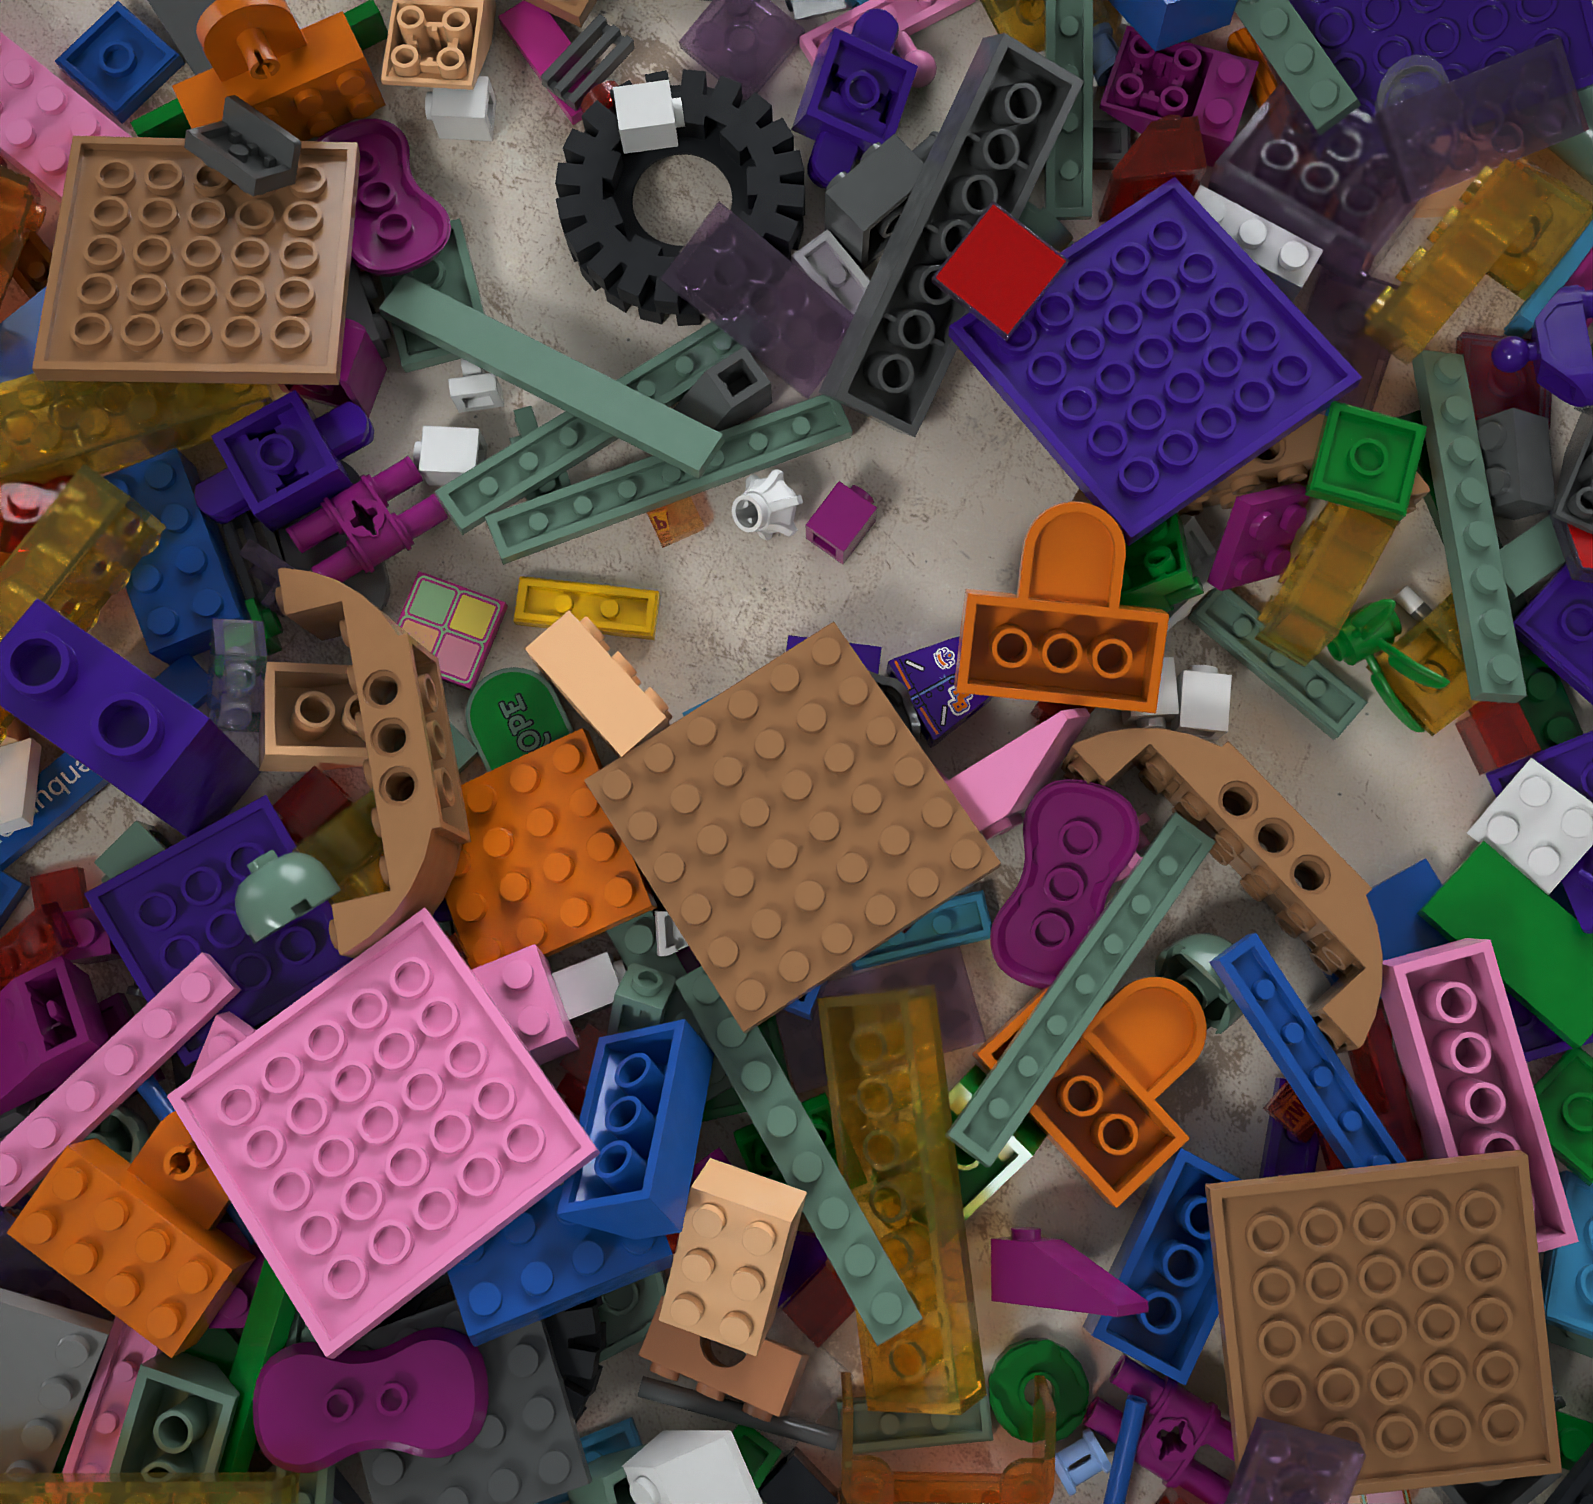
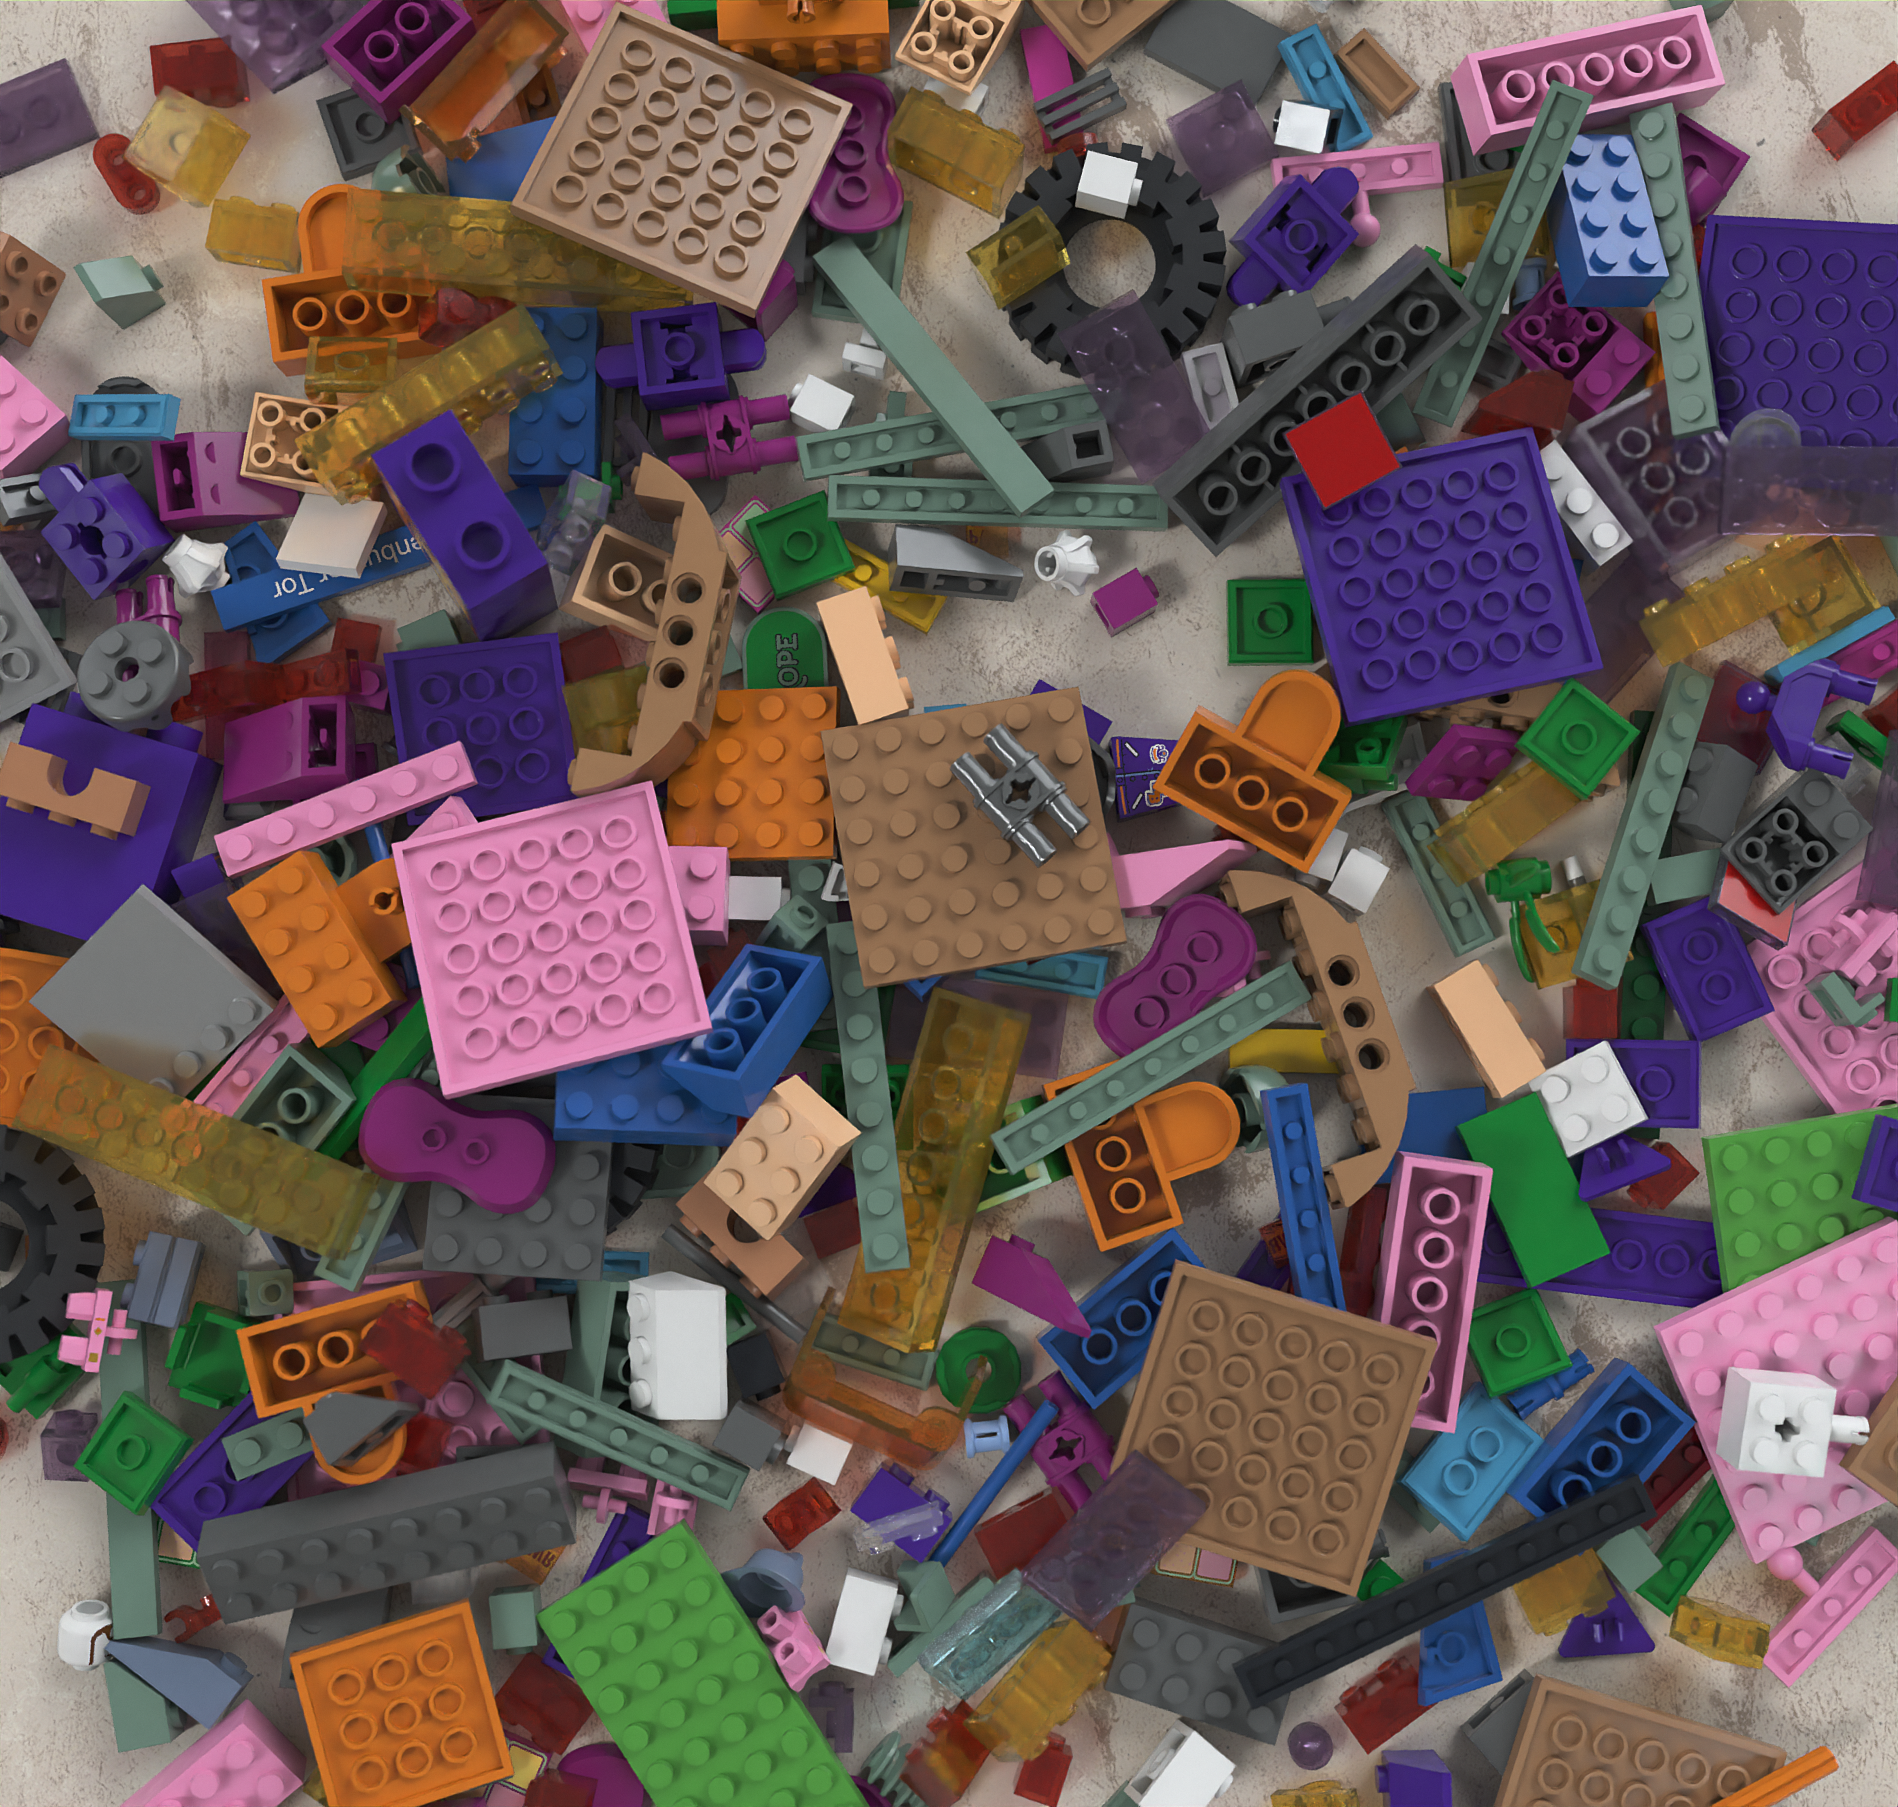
camera: 20 degrees right, 5 degrees up
(247, 148) = (758, 77): dark grey bracket -> none
(281, 892) = (541, 719): sand green cylinder -> none
(481, 150) = (955, 151): none -> clear yellow brick
(486, 602) = (800, 546): none -> green tile
(587, 219) = (1018, 257): none -> clear yellow brick
(643, 560) = (943, 565): none -> dark grey slope
(816, 732) = (1016, 817): none -> dark grey pin
(995, 483) = (1269, 622): none -> green tile
(1207, 910) = (1283, 1050): none -> yellow tile
(1403, 797) = (1487, 1028): none -> light nougat brick

